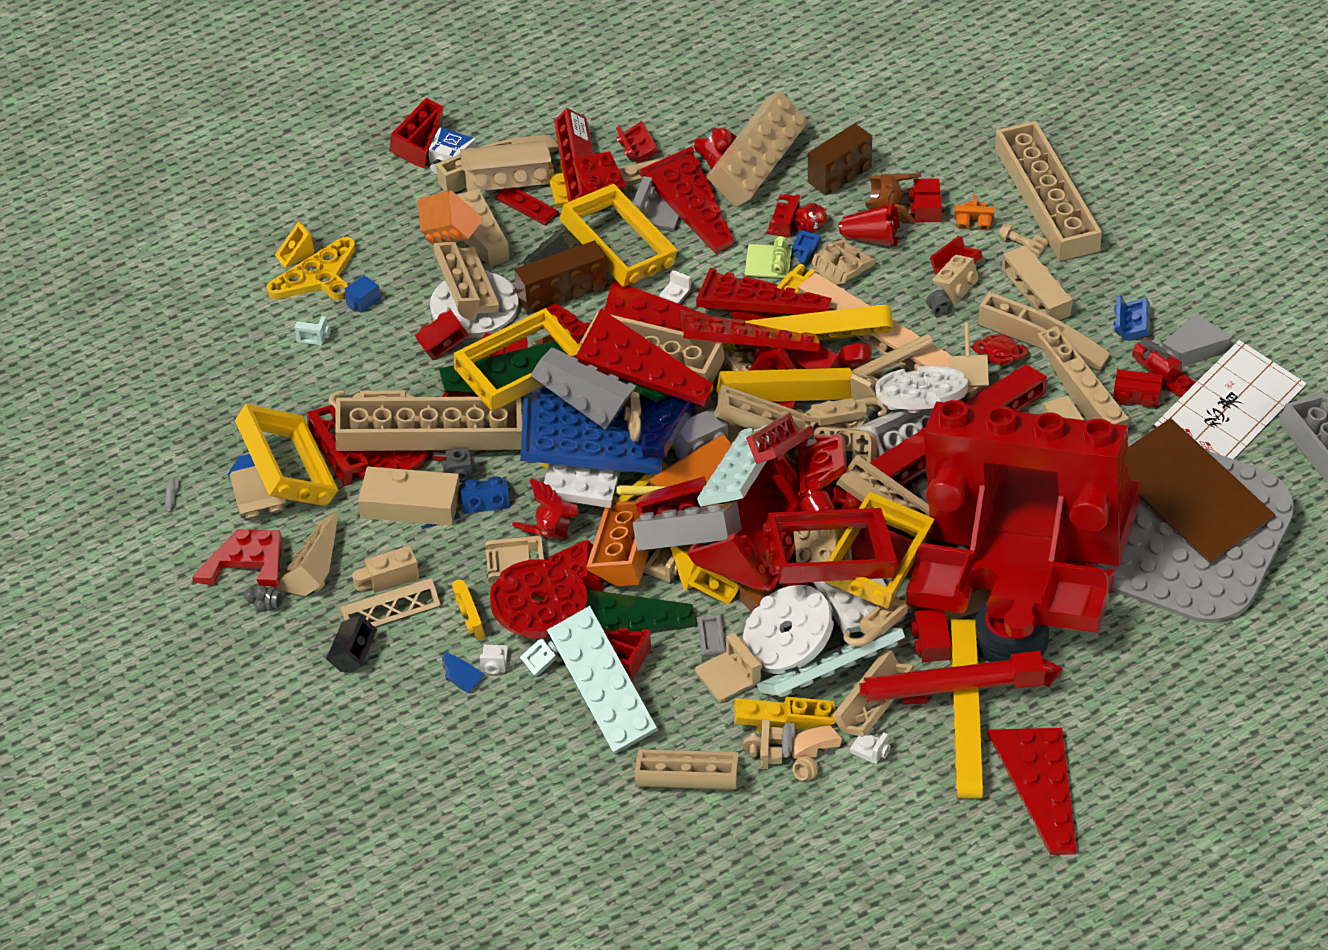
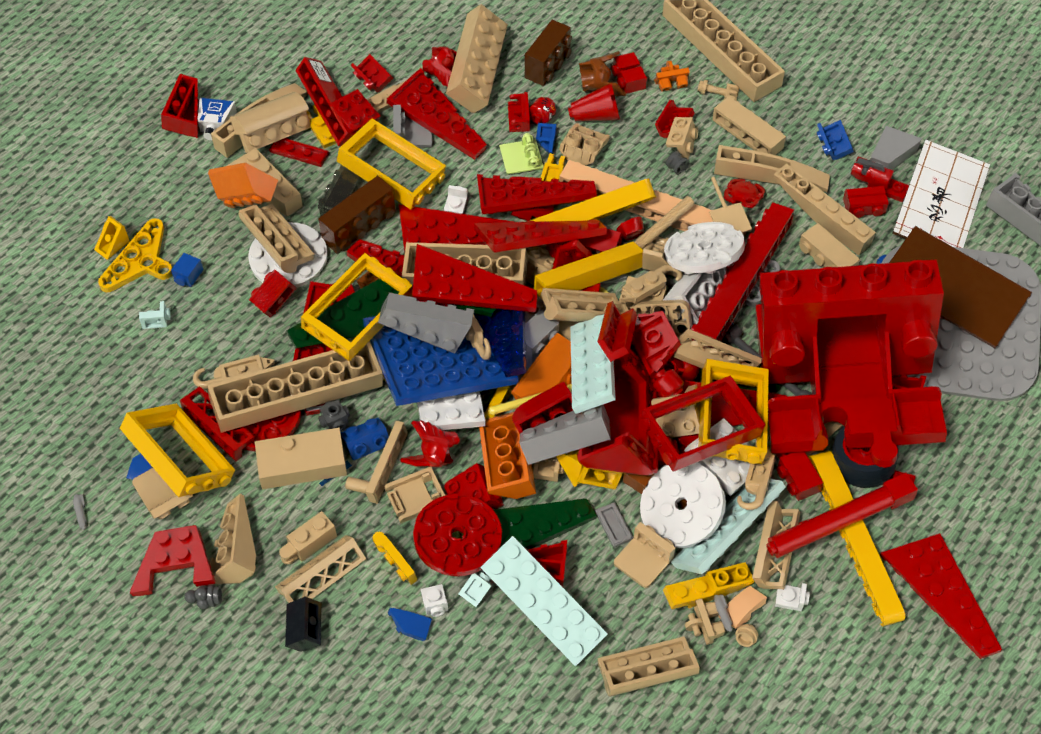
camera: 20 degrees left, 10 degrees up
(492, 523) = (375, 487): none -> tan piece

